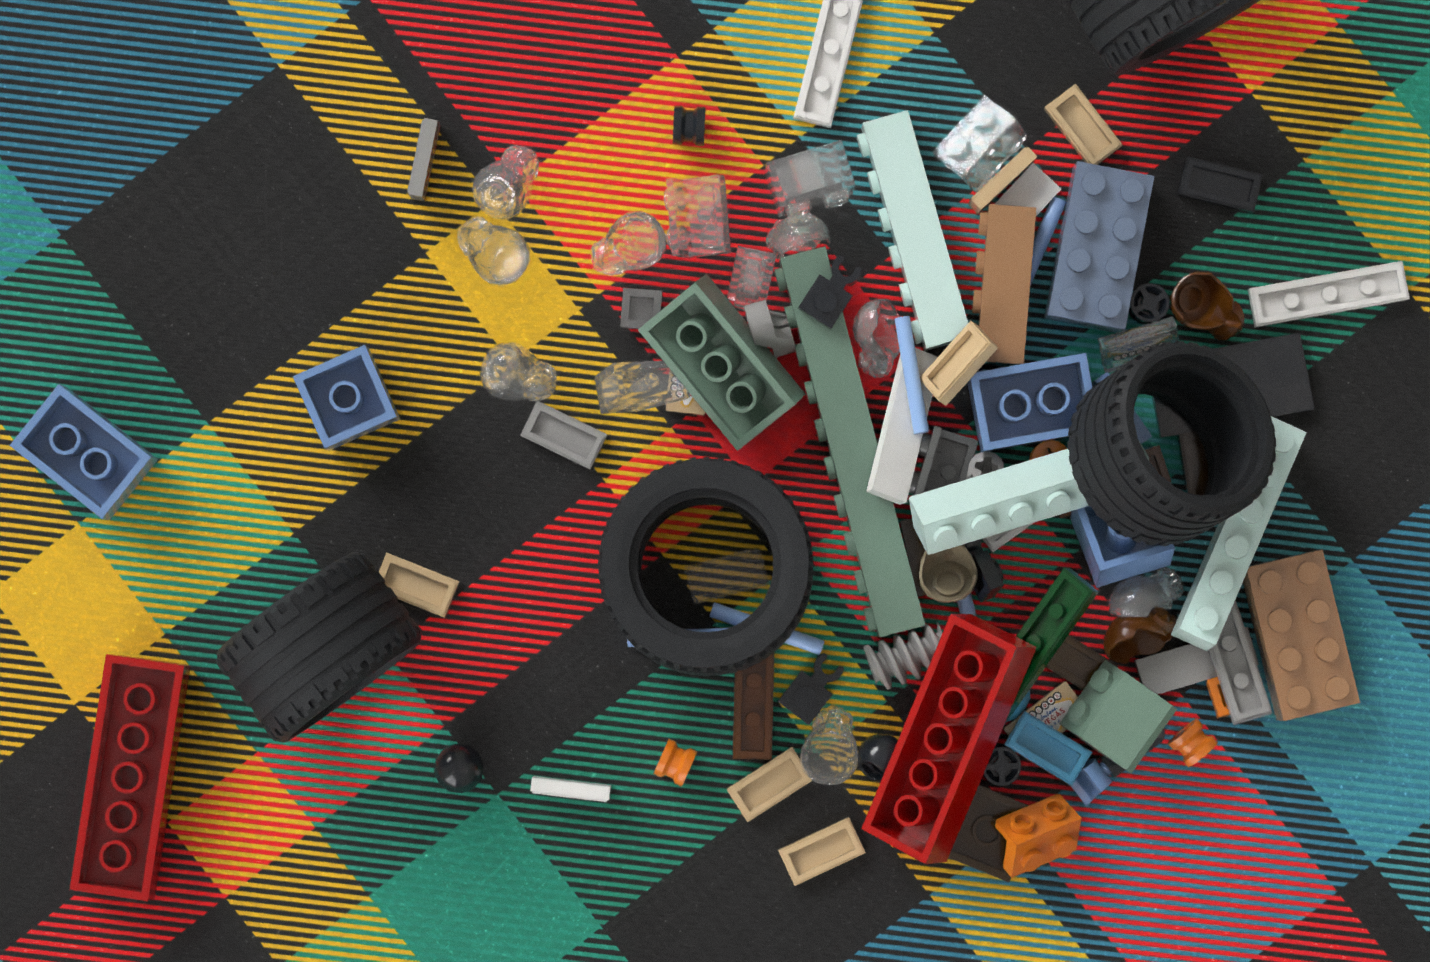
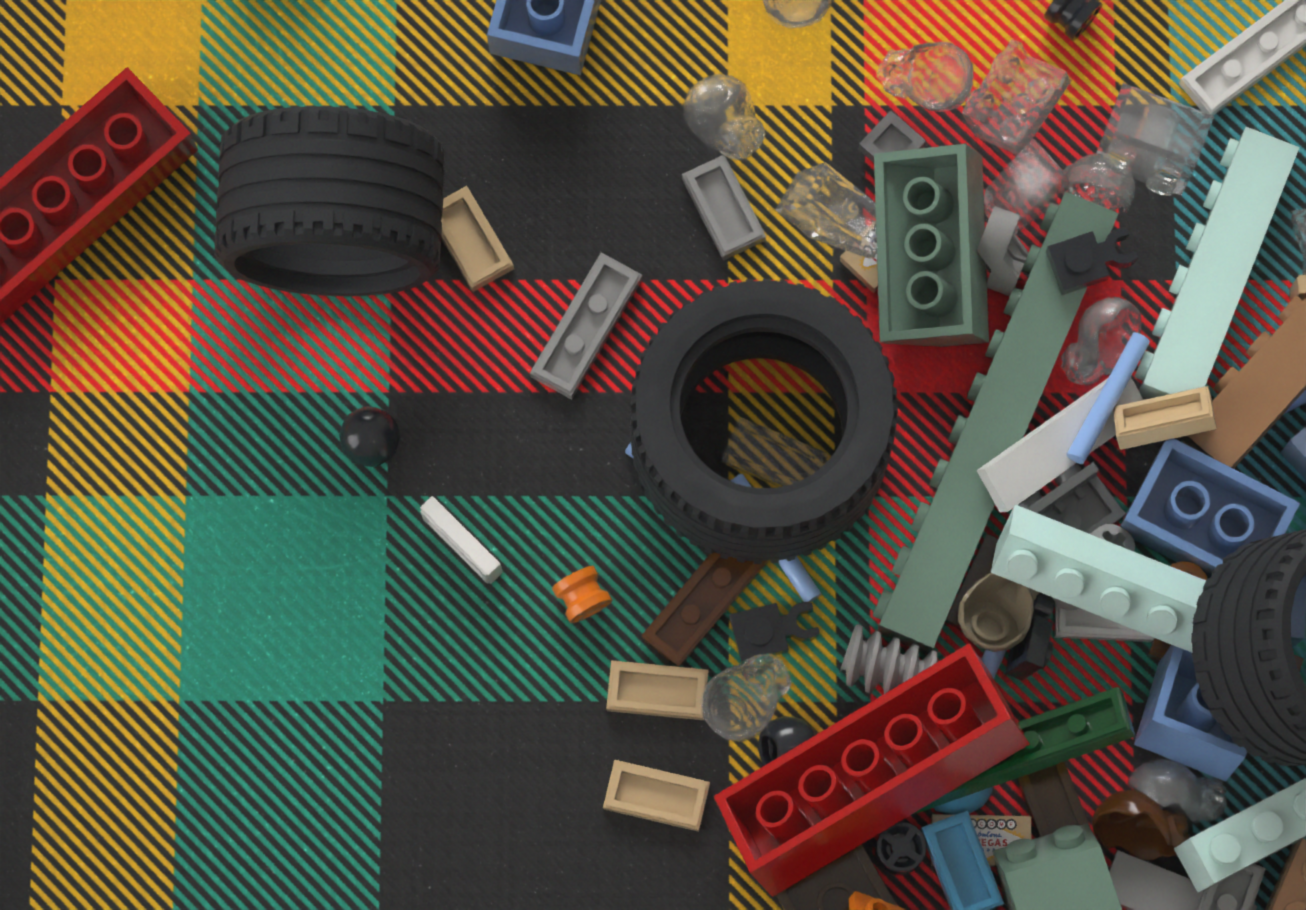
camera: 45 degrees right, 10 degrees down
(537, 583) = (586, 326): none -> light grey tile

